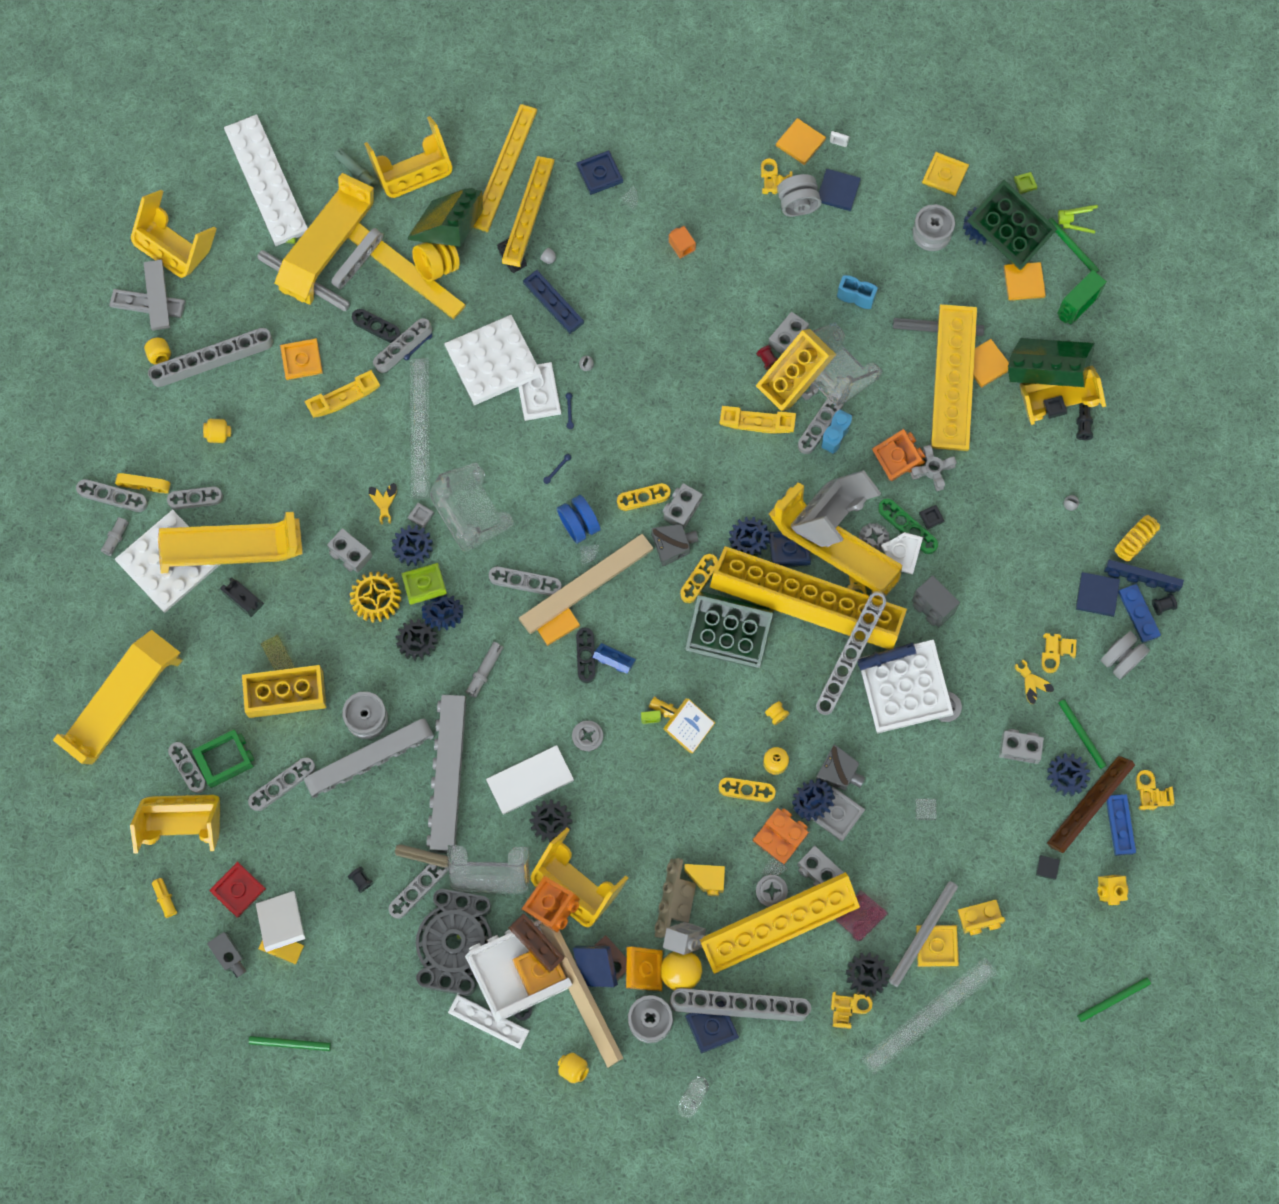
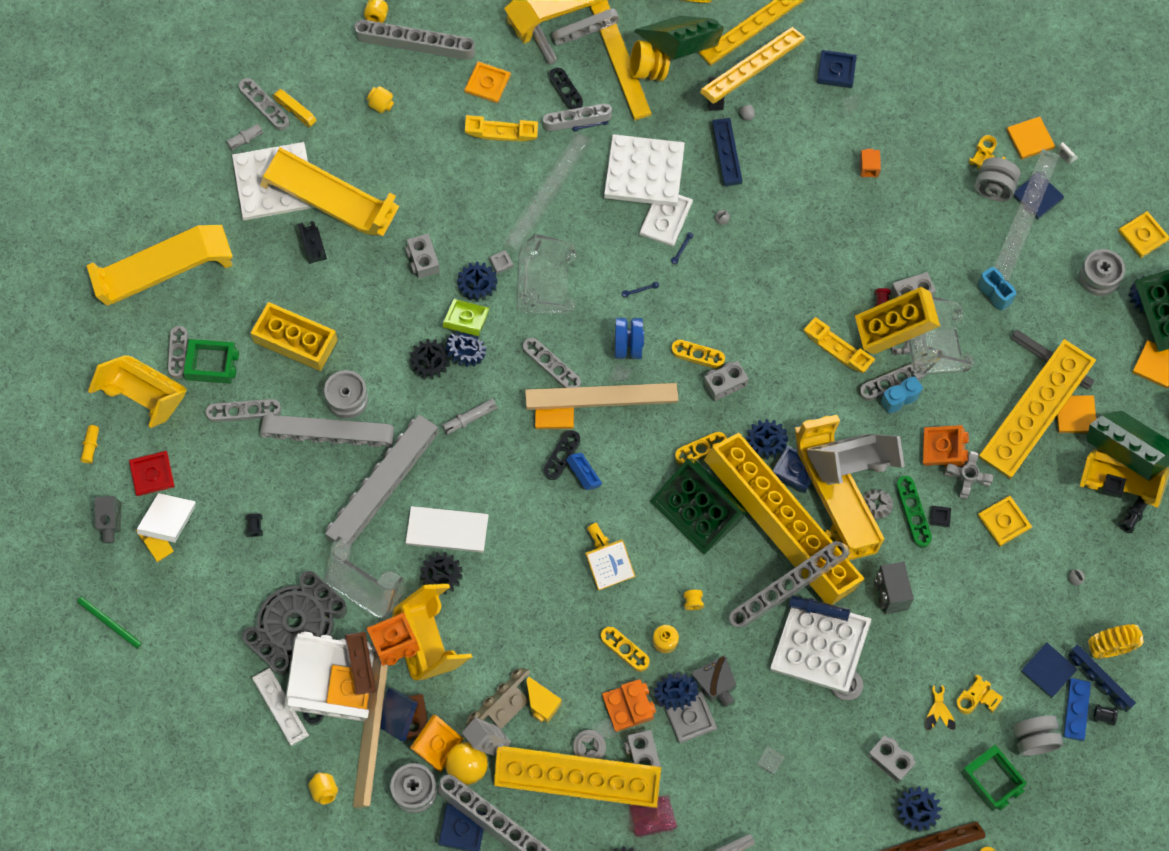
camera: 30 degrees right, 5 degrees down
(182, 505) = (323, 137): light grey beam -> none
(277, 654) = (310, 304): clear yellow tile -> none
(383, 502) = (478, 234): yellow piece -> none
(383, 595) = (407, 298): yellow gear -> none
(416, 885) = (296, 557): light grey beam -> none
(421, 855) = (314, 534): dark tan axle -> none
(589, 727) = (512, 516): light grey gear -> none
(650, 717) = (582, 538): lime tile -> none
(672, 542) = (697, 405): dark grey torso -> none
(840, 211) = (1026, 213): none -> clear plate
(904, 550) = (895, 529): white plate -> none
(985, 489) = (1004, 521): none -> yellow tile
(1082, 734) = (955, 773): green bar -> none
(1099, 690) = (994, 753): none -> green window

